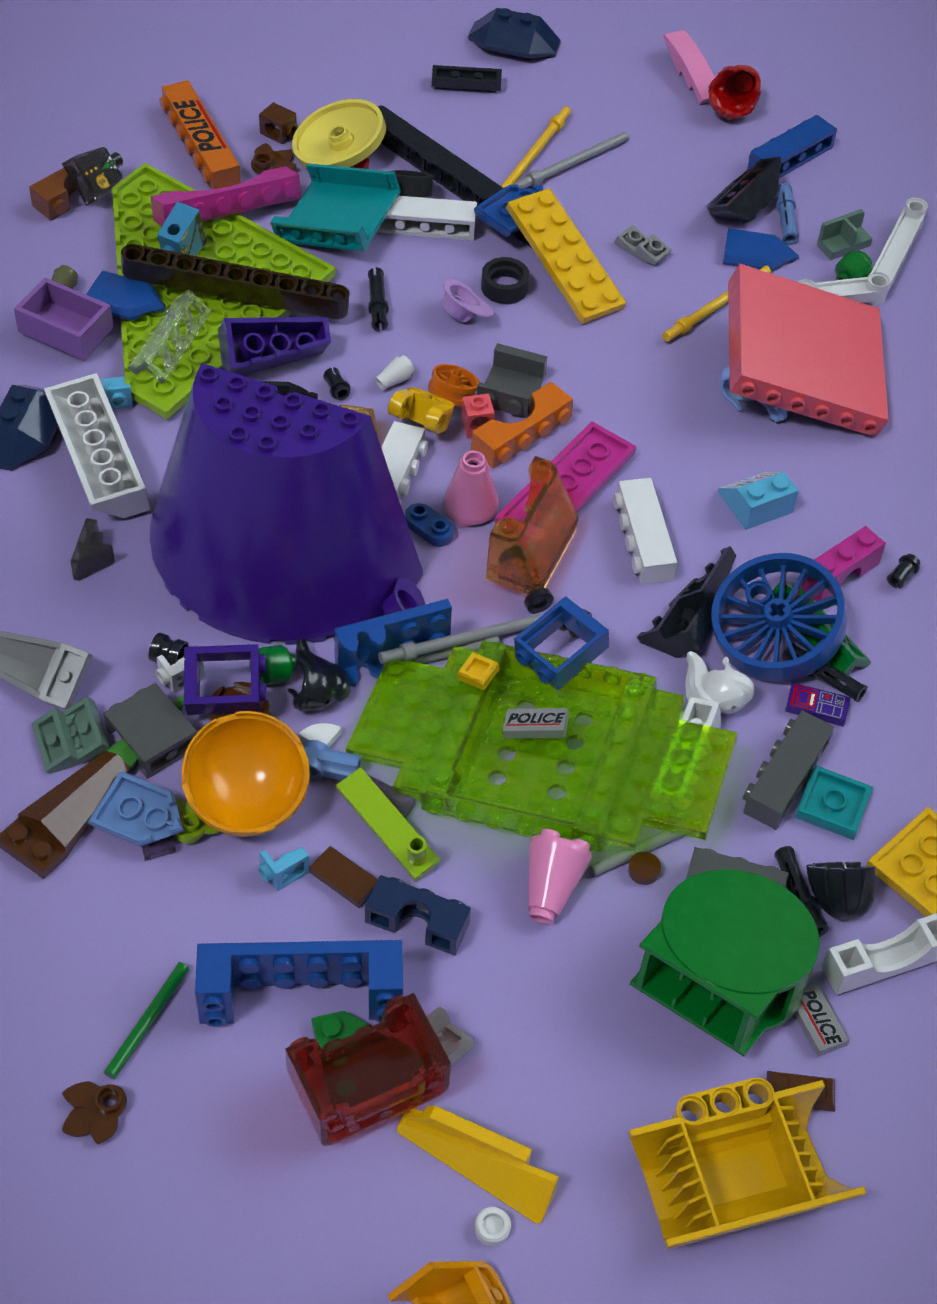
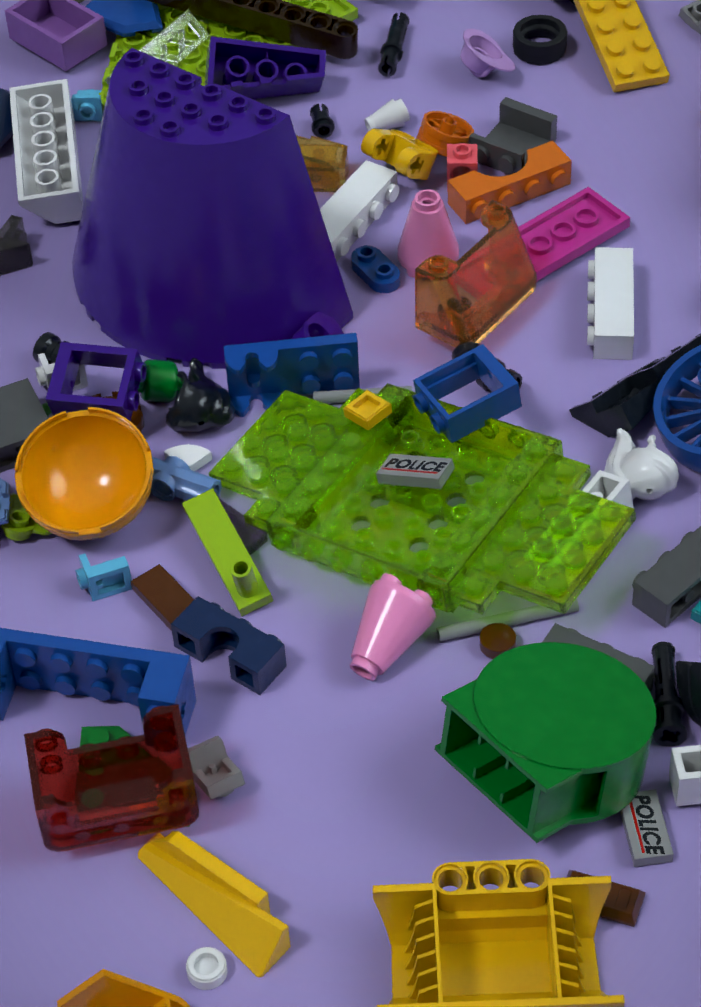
camera: 20 degrees right, 5 degrees down
(409, 650) = (306, 384): light grey bar -> none

